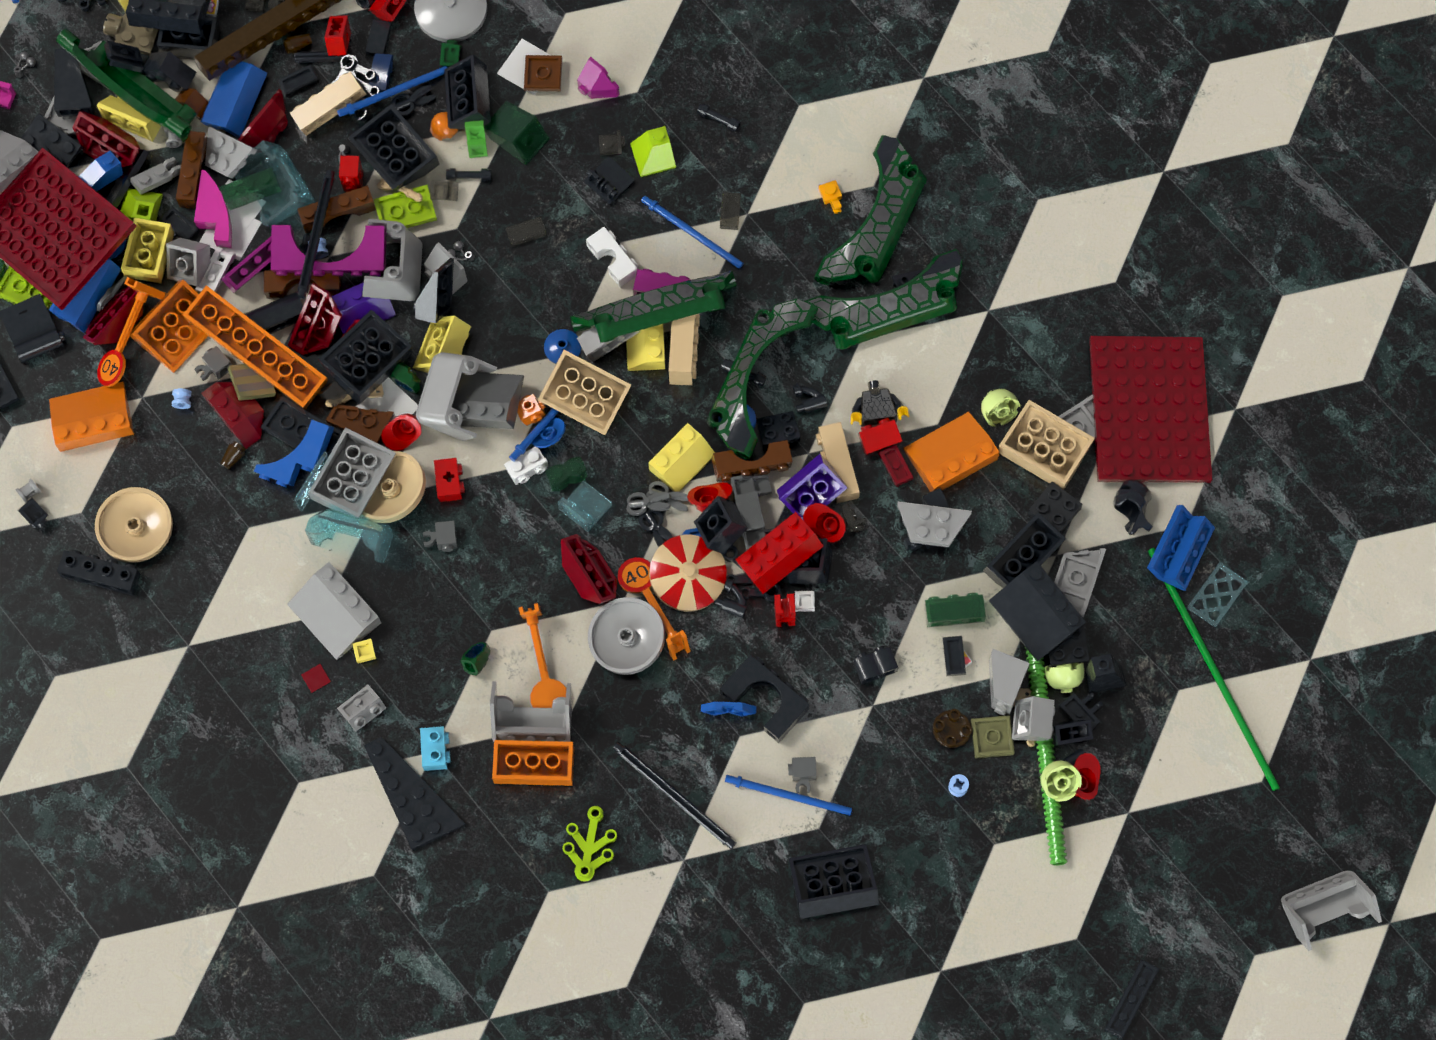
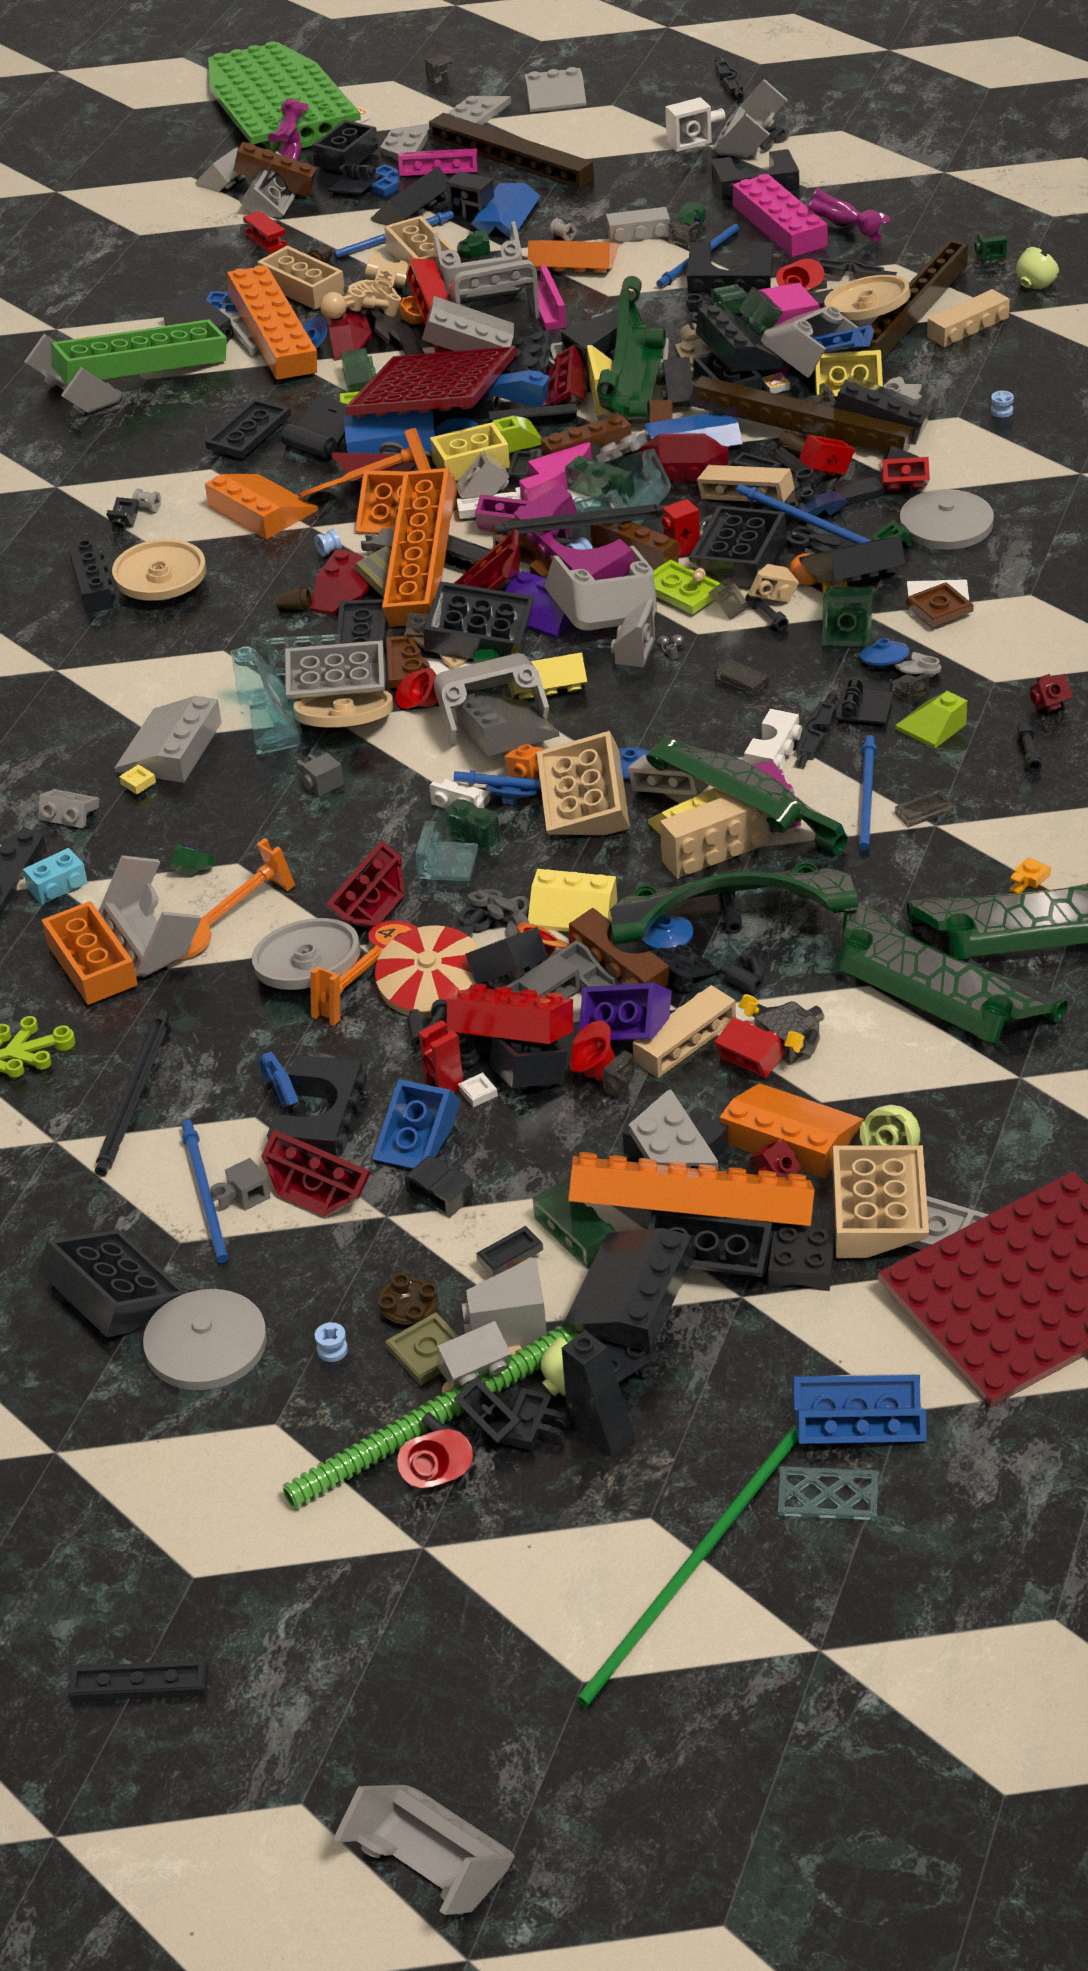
camera: 60 degrees right, 30 degrees down
(124, 56) = (659, 343): black plate -> none
(156, 176) = (548, 422): light grey hinge -> none
(305, 454) = (352, 627): blue arch -> none
(315, 678) = (82, 766): dark red sticker -> none
(436, 296) = (597, 625): black slope -> none
(448, 490) = (390, 747): red brick -> none
(452, 155) = (774, 583): none -> tan slope
(476, 139) = (808, 592): bright green slope -> none
(569, 141) = (884, 652): none -> blue dish
(592, 125) = (919, 665): none -> light grey plate
(595, 81) = (967, 637): magenta slope -> none
(606, 215) = (813, 728): none -> black piece
(683, 72) = (1050, 692): none -> dark red brick
(819, 653) = (415, 1124): none -> blue slope
(827, 727) = (312, 1175): none -> dark red wedge
(896, 465) = (726, 1084): dark red plate -> none
(908, 851) = (205, 1339): none -> light grey dish
(982, 480) = (776, 1158): none -> dark red brick
(987, 539) = (691, 1189): none -> orange brick
(1060, 780) = (398, 1415): yellowish green cylinder -> none
(1078, 575) = (724, 1326): light grey wing -> none
(1132, 502) = (879, 1324): black piece -> none

